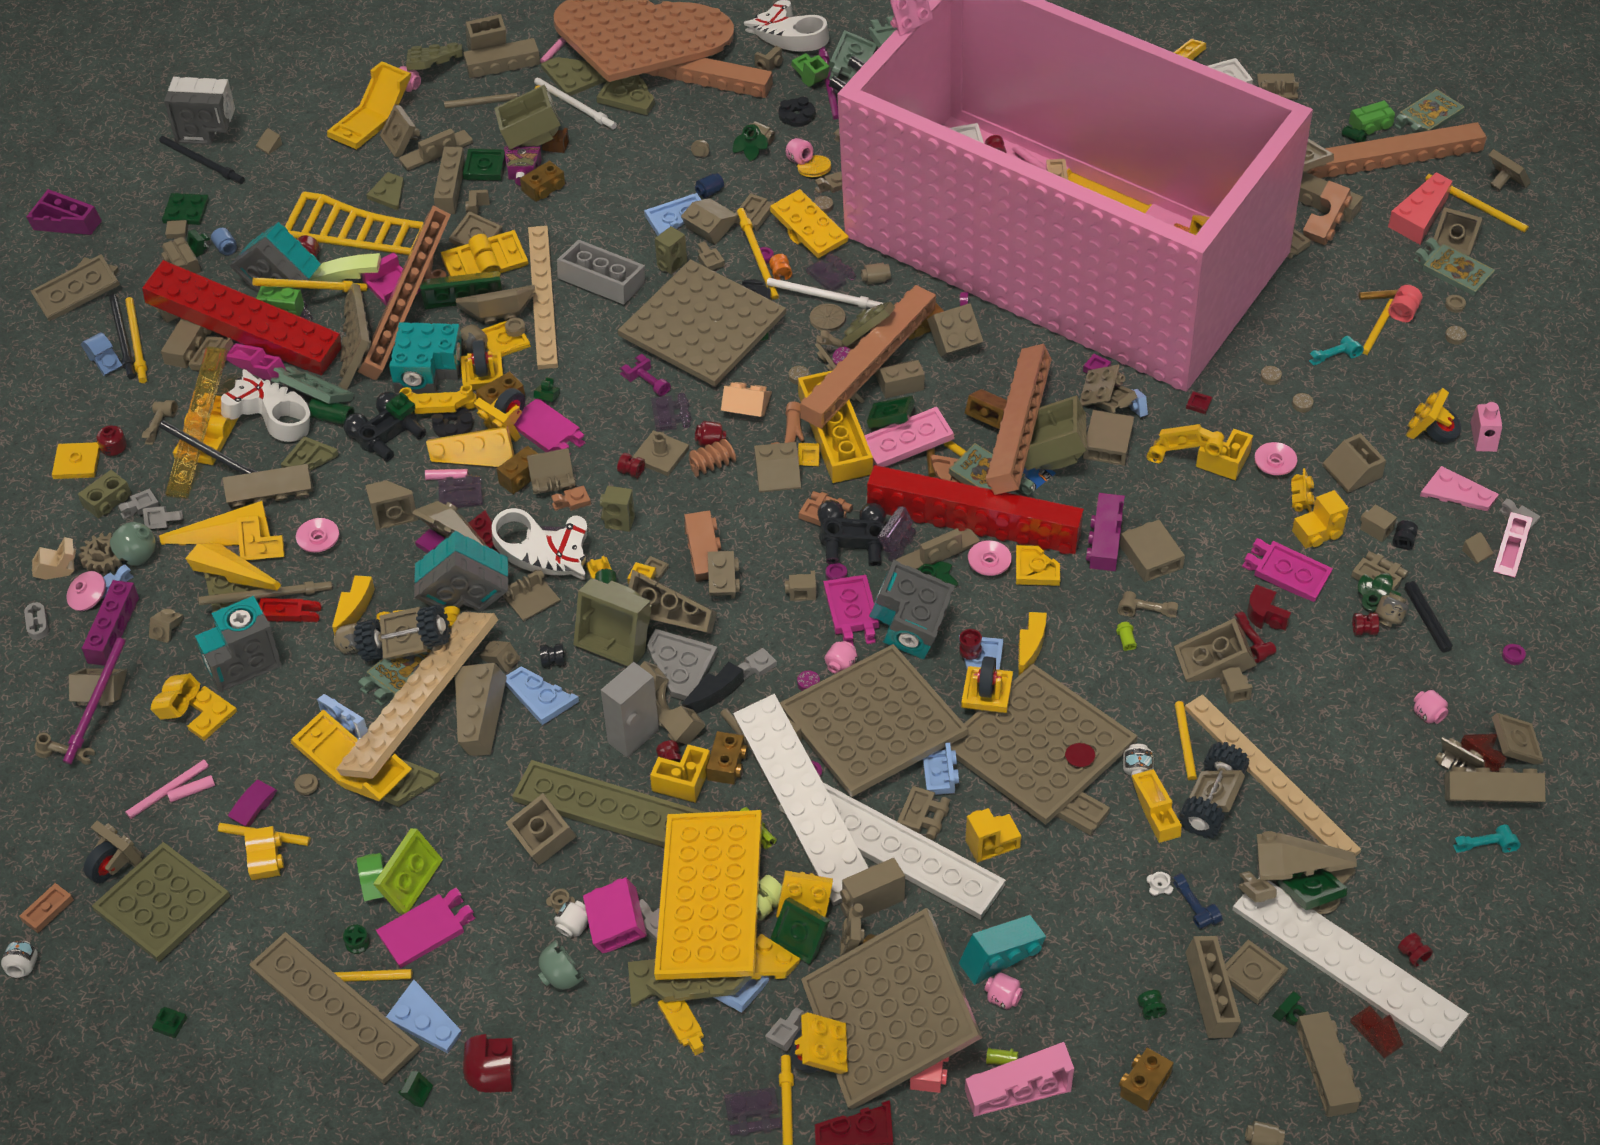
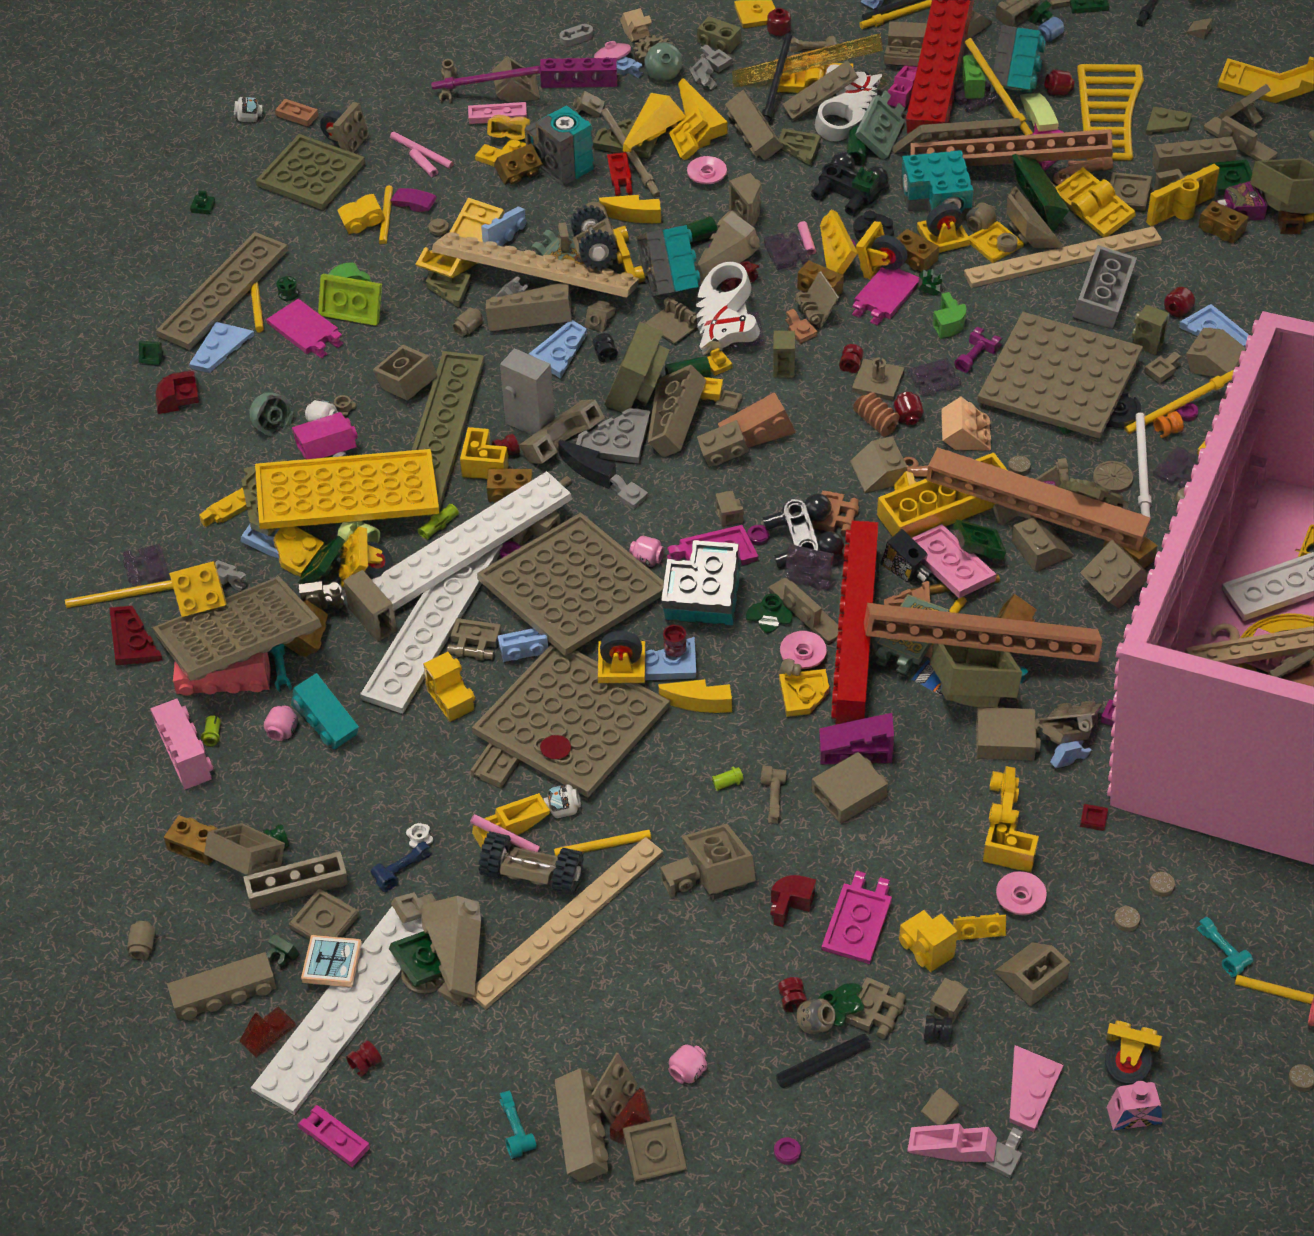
camera: 80 degrees right, 0 degrees up
(139, 708) = (482, 113): none -> bright pink plate
(242, 694) = (518, 164): none -> pearl gold brick
(248, 418) = (820, 90): none -> dark tan plate
(381, 664) = (563, 237): none -> dark tan tile
(405, 556) = (702, 229): none -> dark green pin
(438, 726) = (511, 288): none -> light grey plate
(441, 402) = (887, 209): yellow plate -> none
(472, 770) = (467, 322): none -> dark tan brick
(507, 193) = (1182, 196): none -> yellow plate
(601, 381) = (950, 318): none -> bright green brick
(633, 229) = (1179, 301): none -> dark red head
(807, 679) = (617, 532): magenta tile -> none
(904, 459) = (906, 558): none -> black torso
(1012, 568) = (789, 667): none -> dark tan arm
(1166, 1014) = (244, 848): none -> dark tan window
(1175, 810) = (515, 839): none -> bright pink bar
(1259, 649) = (737, 901): dark red brick -> none
(1310, 963) = (331, 961): none -> tile
(1495, 982) = (334, 1136): none -> dark pink plate

